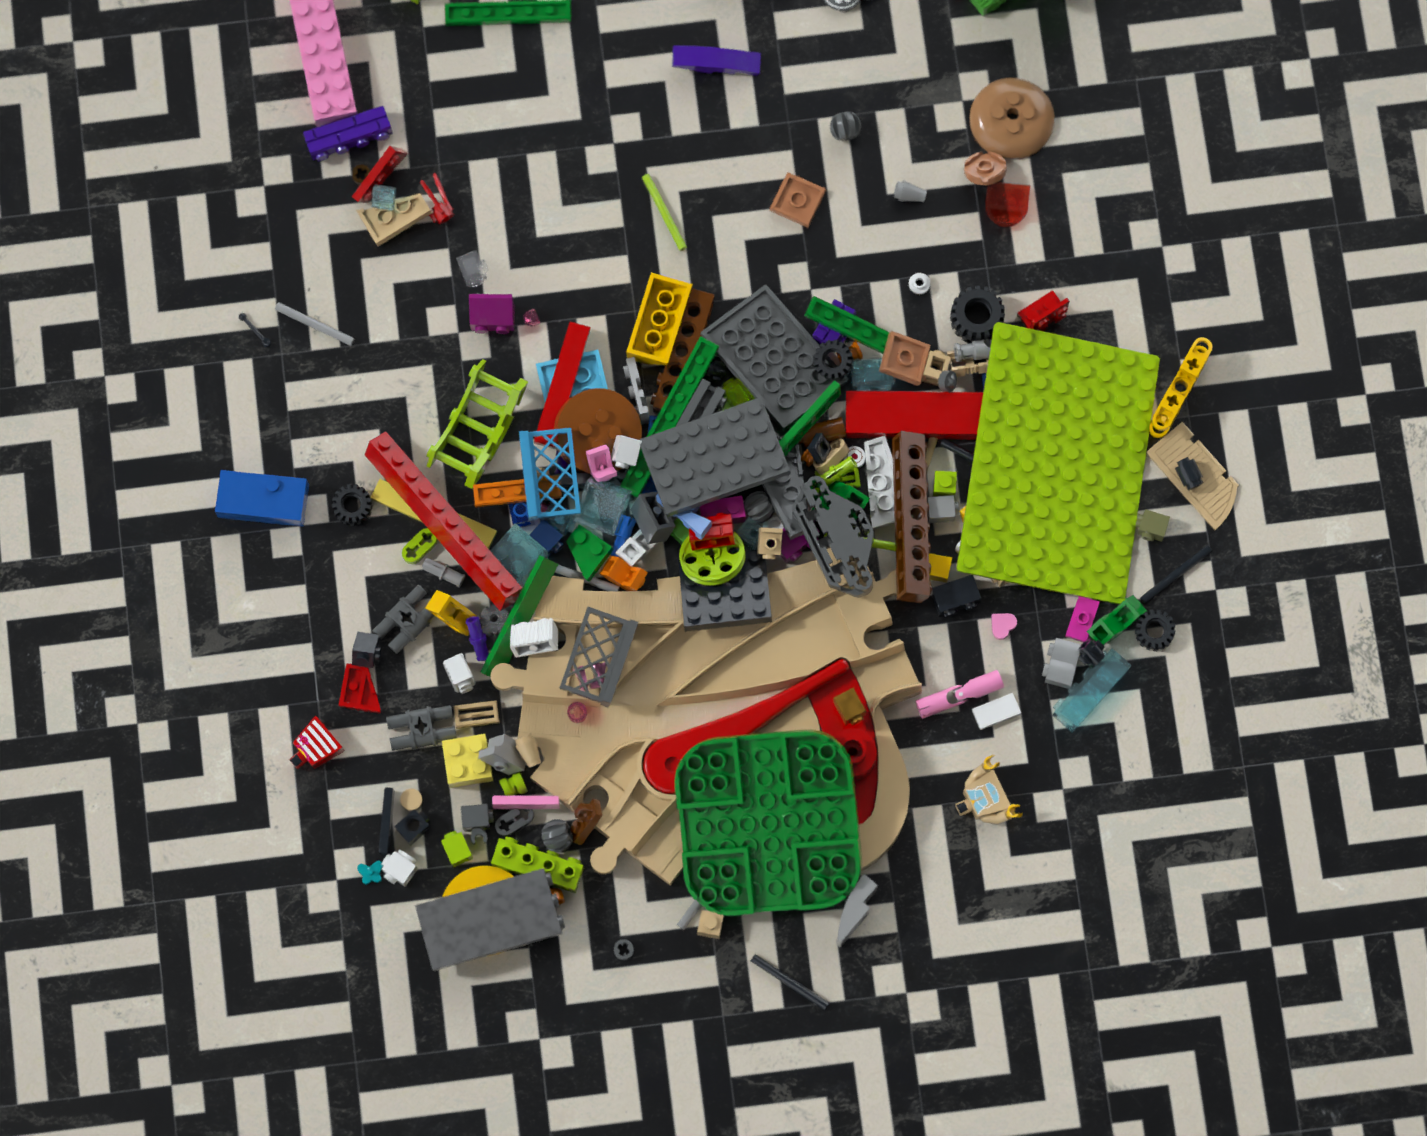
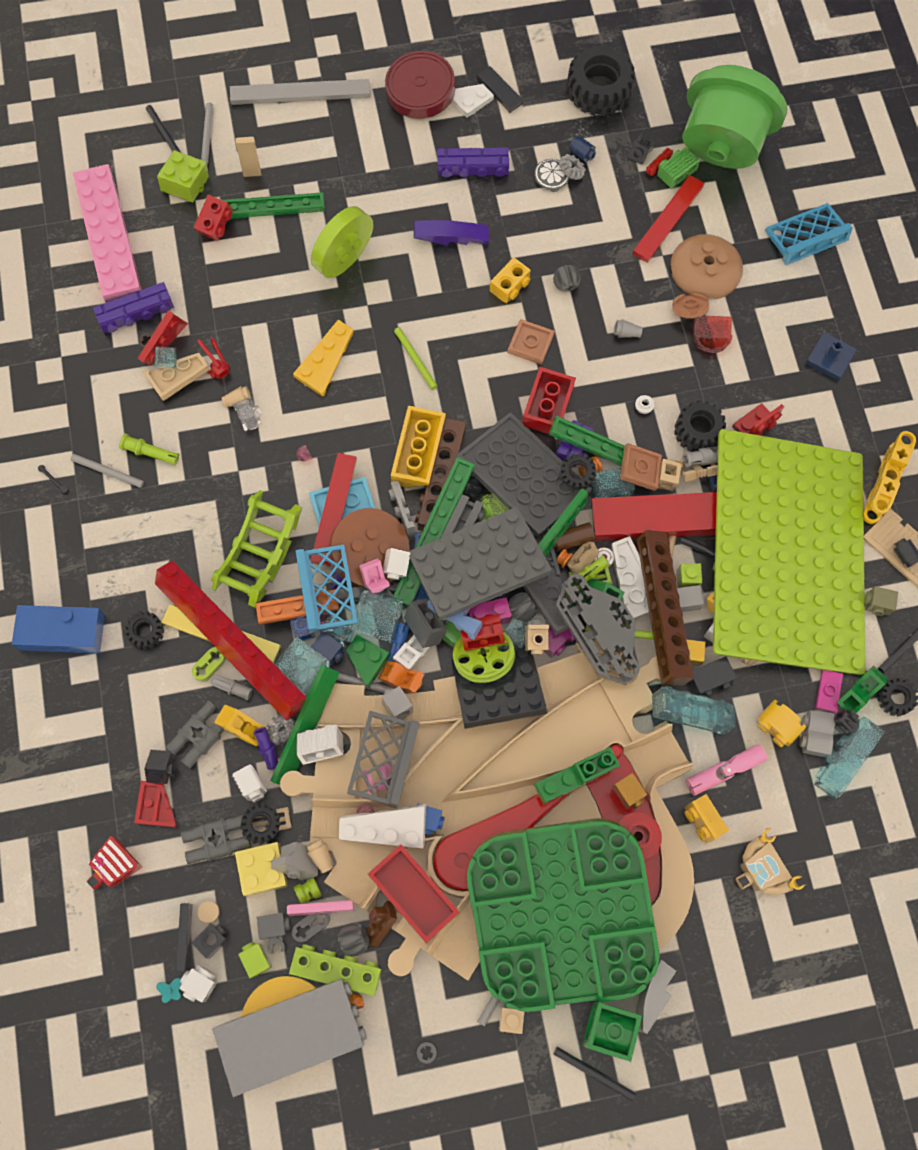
camera: 10 degrees left, 5 degrees down
(351, 299) = (141, 447): none -> lime pin
(442, 28) = (213, 218): none -> red brick
(460, 247) = (235, 396): none -> tan cone
(468, 727) = (260, 810): none -> black tyre
(491, 313) = (266, 449): magenta slope -> none
(558, 210) = (321, 363): none -> yellow wing
(588, 73) = (341, 241): none -> lime brick
(604, 726) = (386, 827): none -> white wing
(616, 600) = (397, 703): none -> light grey brick
(620, 791) = (413, 893): none -> red piece
(640, 721) = (433, 820): none -> blue brick
(775, 121) = (506, 278): none -> yellow brick
(796, 687) = (576, 775): none -> green slope
(808, 939) = (612, 1031): none -> green brick
(809, 273) = (548, 399): none -> red brick
(819, 448) = (573, 550): black tile -> none
(929, 629) = (693, 710): none -> clear light blue brick
(932, 742) = (706, 819): none -> yellow bracket
(947, 381) = (682, 484): dark grey tile -> none
(974, 55) = (668, 218): none -> red tile
(996, 711) = (761, 783): white tile -> none
(1002, 625) = (756, 701): bright pink tile -> none
(1021, 649) = (780, 723): none -> yellow brick
(1141, 238) = (831, 356): none -> dark blue tile
(1147, 96) = (815, 243): none -> dark azure fence

